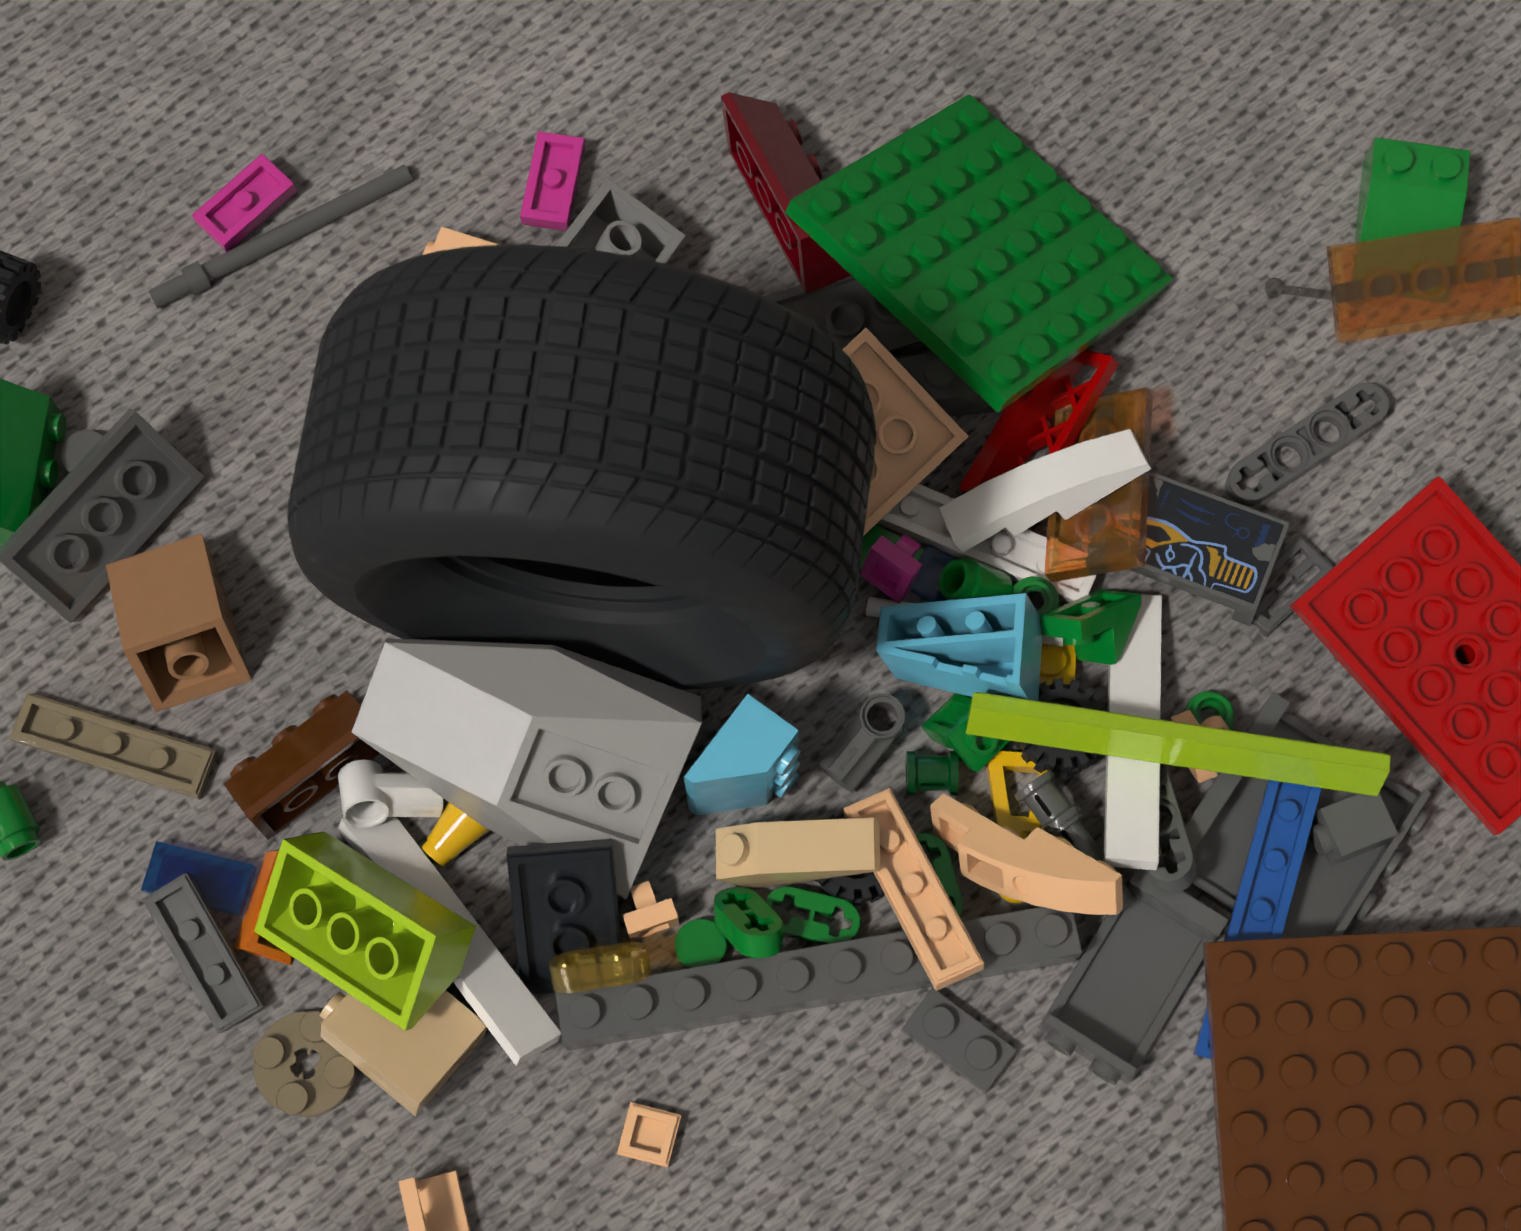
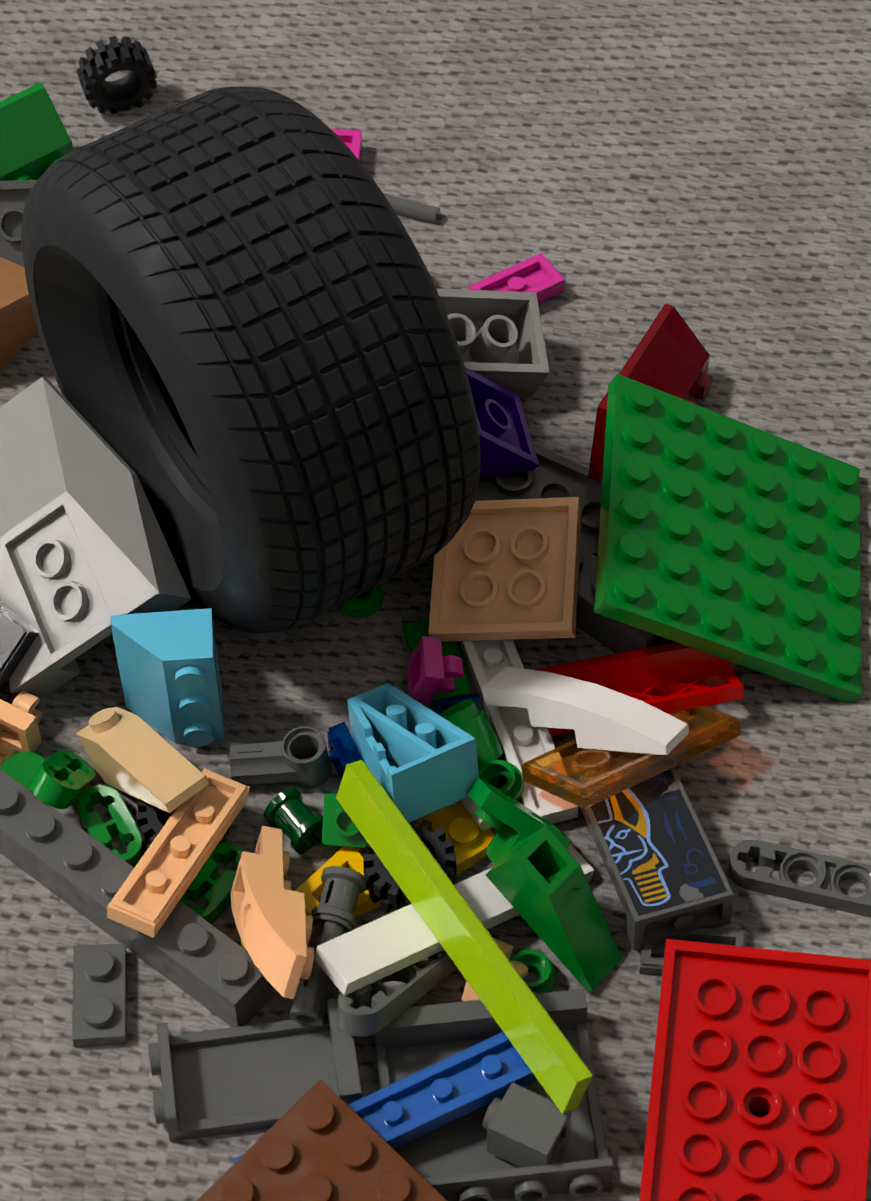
camera: 50 degrees right, 20 degrees down
(909, 690) = (342, 748): none -> clear blue tile
(1187, 651) = (558, 904): none -> green slope

